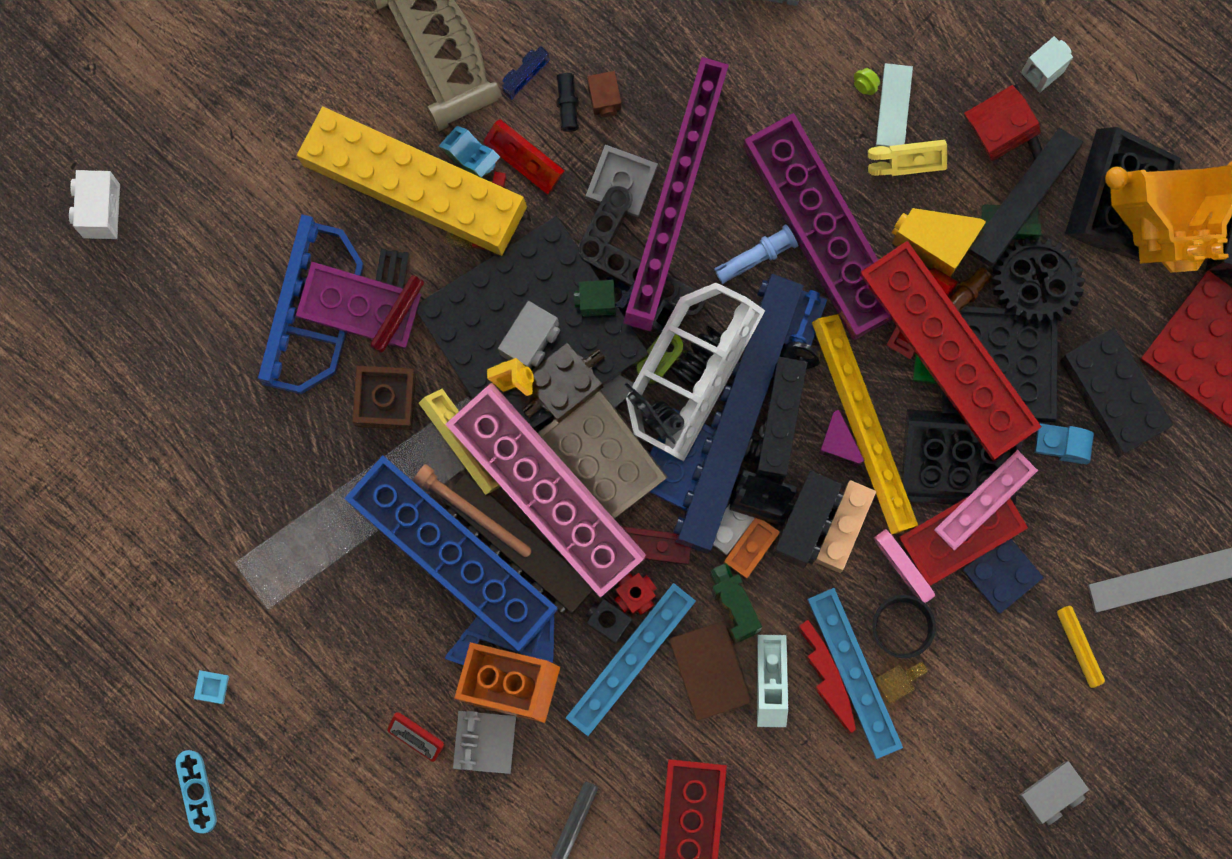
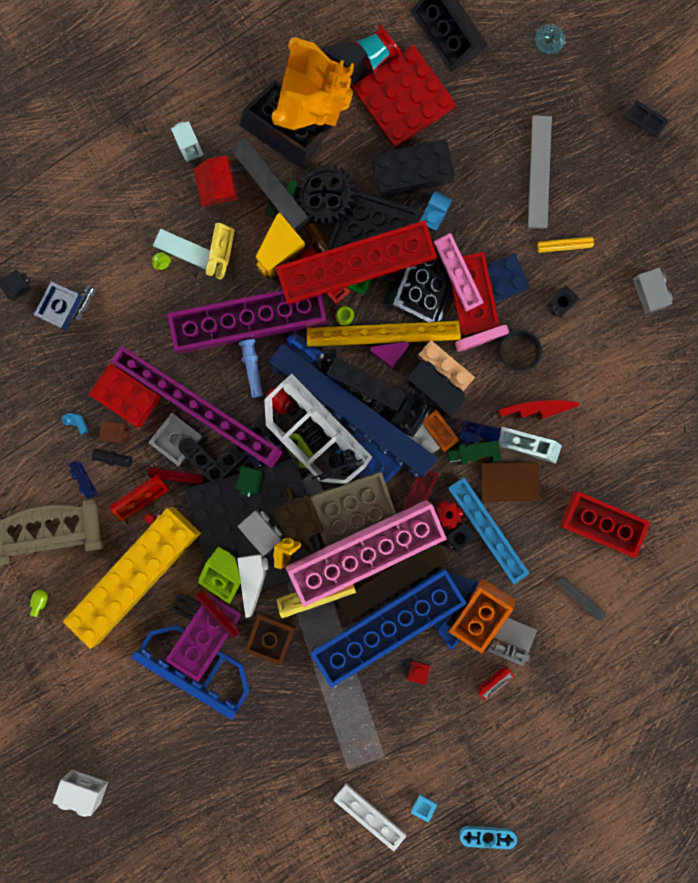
camera: 65 degrees left, 5 degrees up
(176, 615) = (370, 817): none -> white plate
(336, 65) = (38, 602): none -> lime cylinder
(398, 622) = (418, 672): none -> red plate
(427, 479) = (333, 627): nougat piece -> none
(452, 300) = (221, 575): none -> lime slope
(463, 344) = (252, 575): none -> white slope
(469, 152) = (125, 533): dark azure brick -> none
(570, 199) = (177, 476): none -> dark red axle
(604, 34) = (75, 420): none -> dark azure arm
(660, 92) = (125, 395): none -> red brick
(720, 311) = (281, 402): none -> red head
(765, 590) = (473, 431): none -> clear blue plate
(855, 673) = (540, 391): dark azure plate -> none
(873, 361) = (344, 315): none -> lime plate
(897, 683) = (553, 366): clear yellow plate -> none
(1007, 666) = (568, 296): none -> black brick

